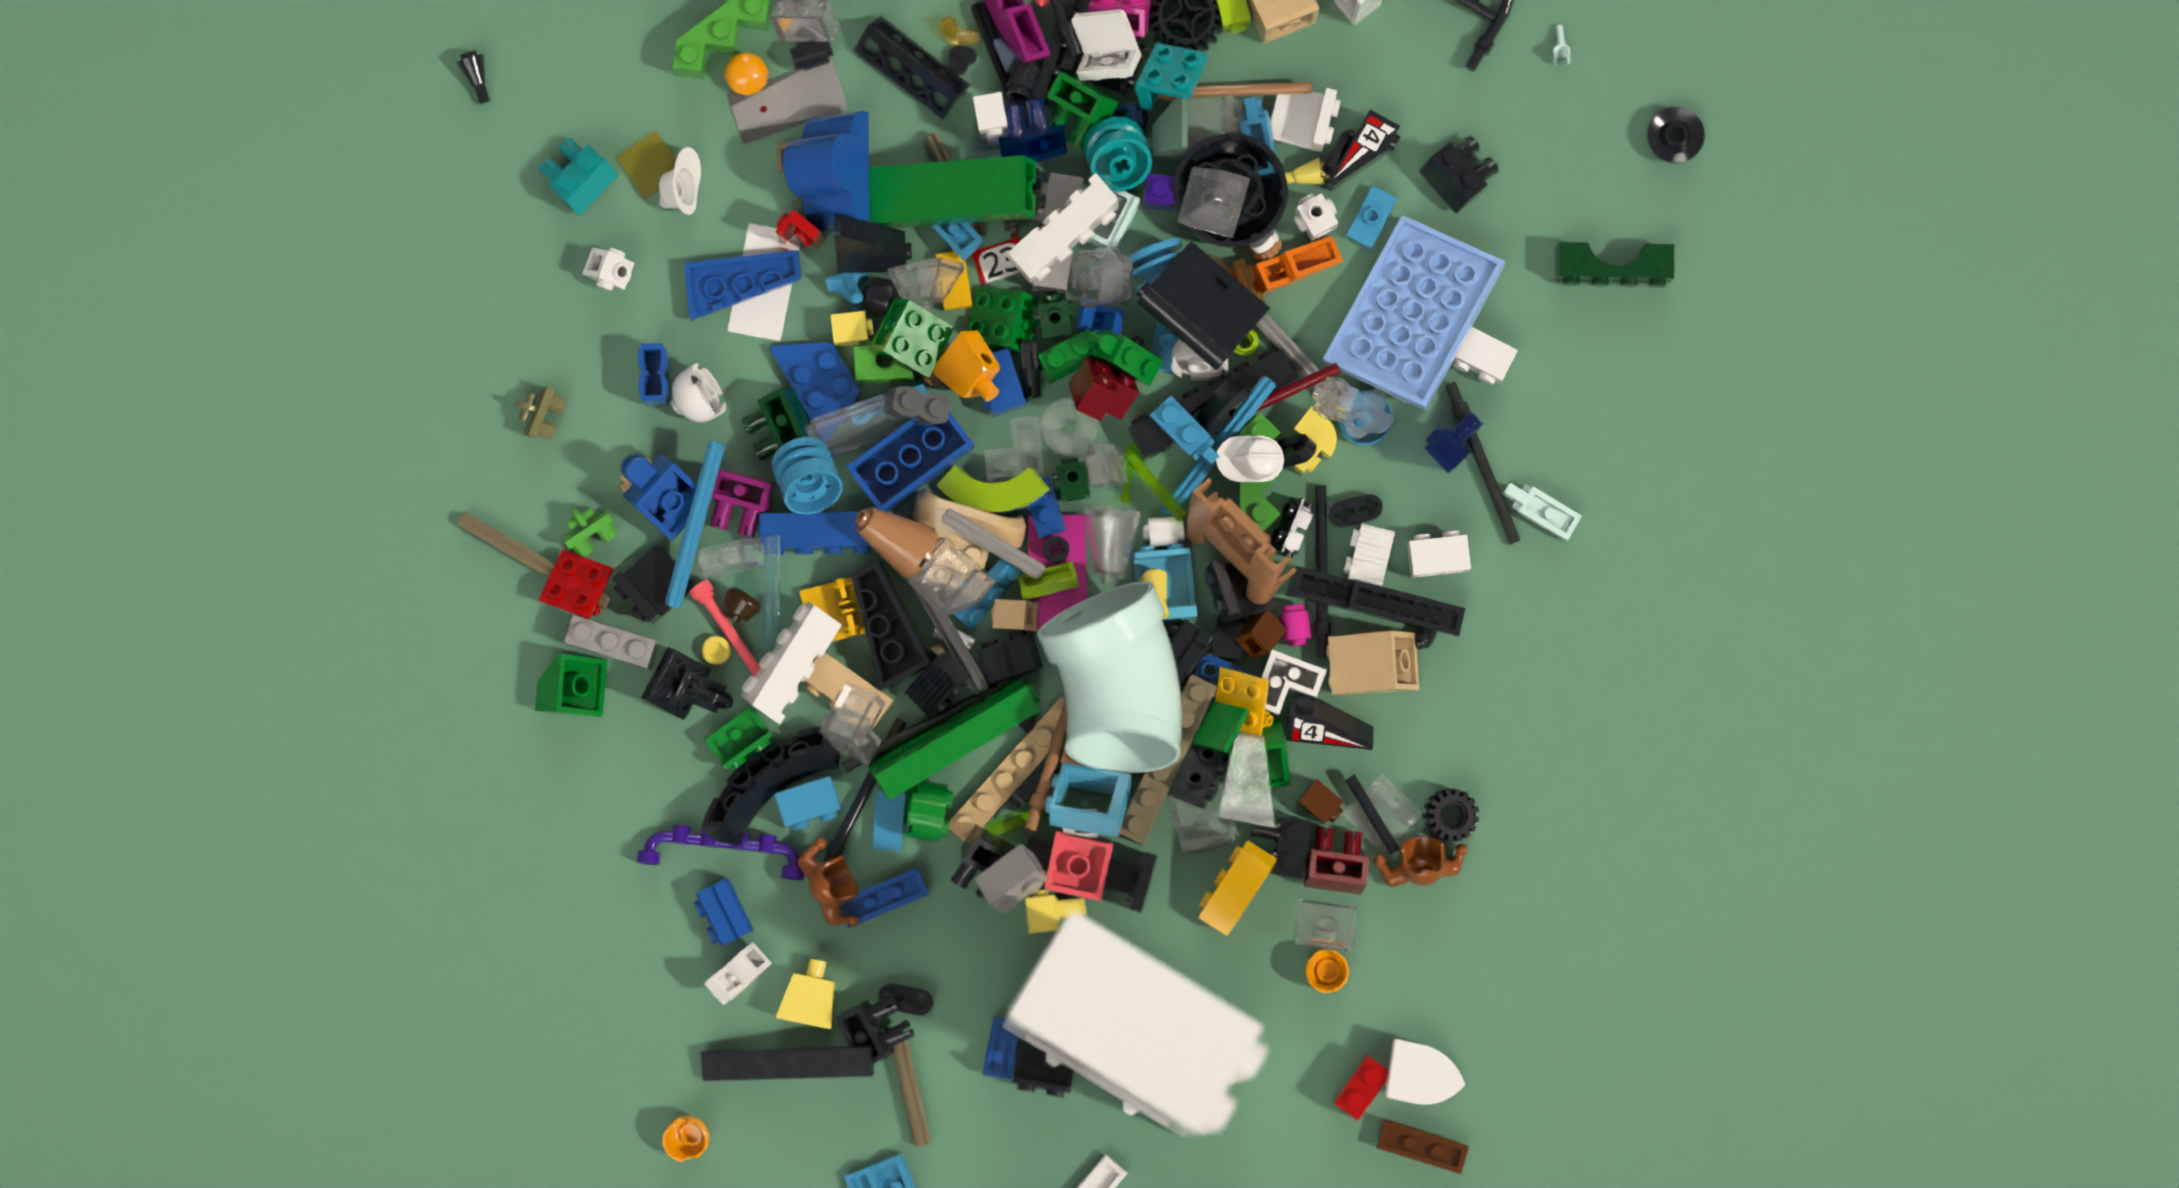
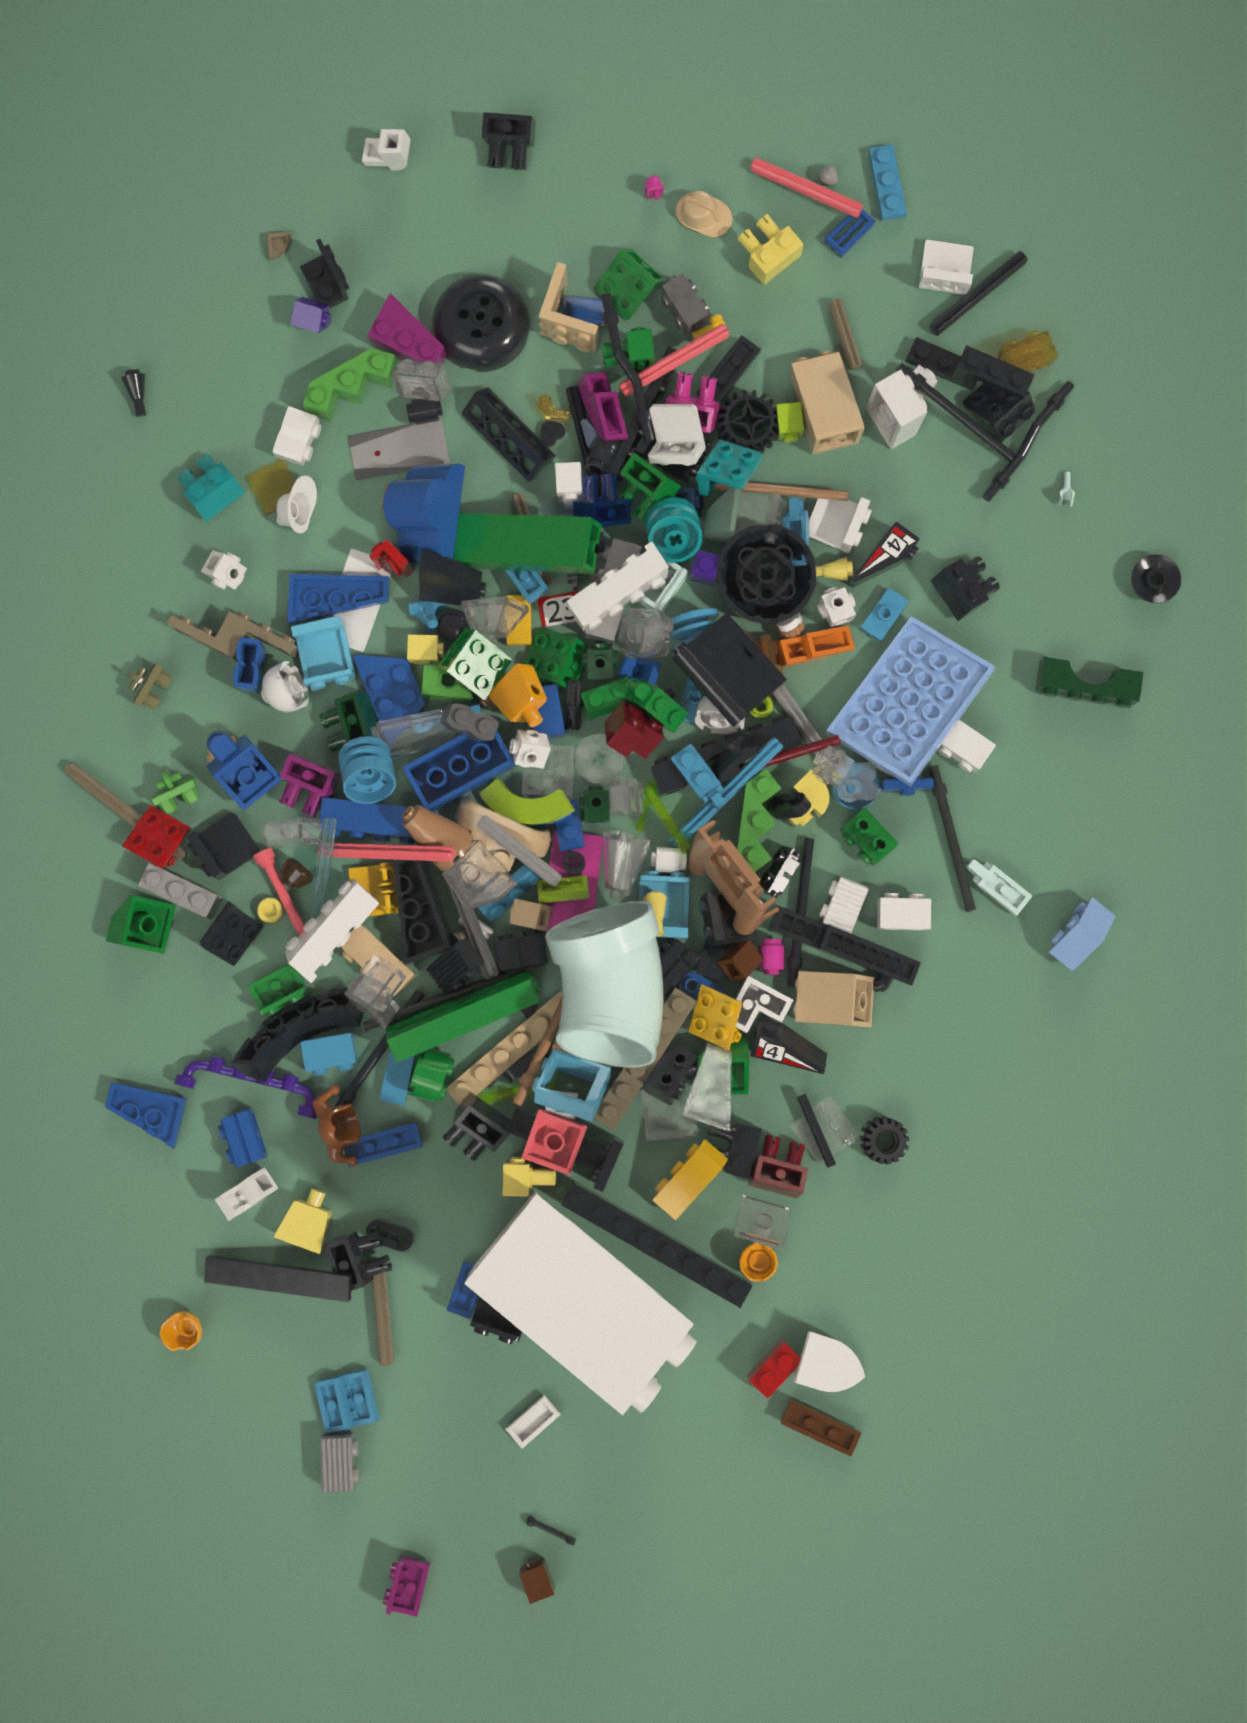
camera: 10 degrees right, 0 degrees up
(613, 896) = (150, 1110): none -> blue wing
(627, 341) = (231, 632): none -> dark tan bracket
(669, 102) = (296, 436): none -> white brick
(695, 524) = (265, 799): dark azure axle -> none
(703, 692) = (252, 945): black hinge -> none
(736, 348) = (324, 652): none -> medium azure panel
(746, 73) = (366, 420): light orange hair -> none
(850, 564) = (394, 852): none -> coral axle
(989, 426) = (530, 749): none -> white brick
(1011, 879) = (493, 1146): light grey brick -> none
(1213, 200) = (750, 580): clear slope -> none
(1214, 967) = (657, 1244): none -> black brick
(1220, 727) = (694, 1037): green piece -> none
(1250, 459) = (752, 807): white piece -> none
(1321, 802) = (773, 1114): reddish brown brick -> none
(1337, 153) = (862, 555): black piece -> none
(1353, 504) = (836, 858): black beam -> none
(1387, 474) = (868, 837): none -> green brick
(1410, 411) = (896, 785): none -> blue plate
(1421, 862) = (853, 1178): dark orange piece -> none
(1449, 444) = (926, 819): clear blue brick -> none
(1644, 550) = (1083, 933): none -> light blue brick

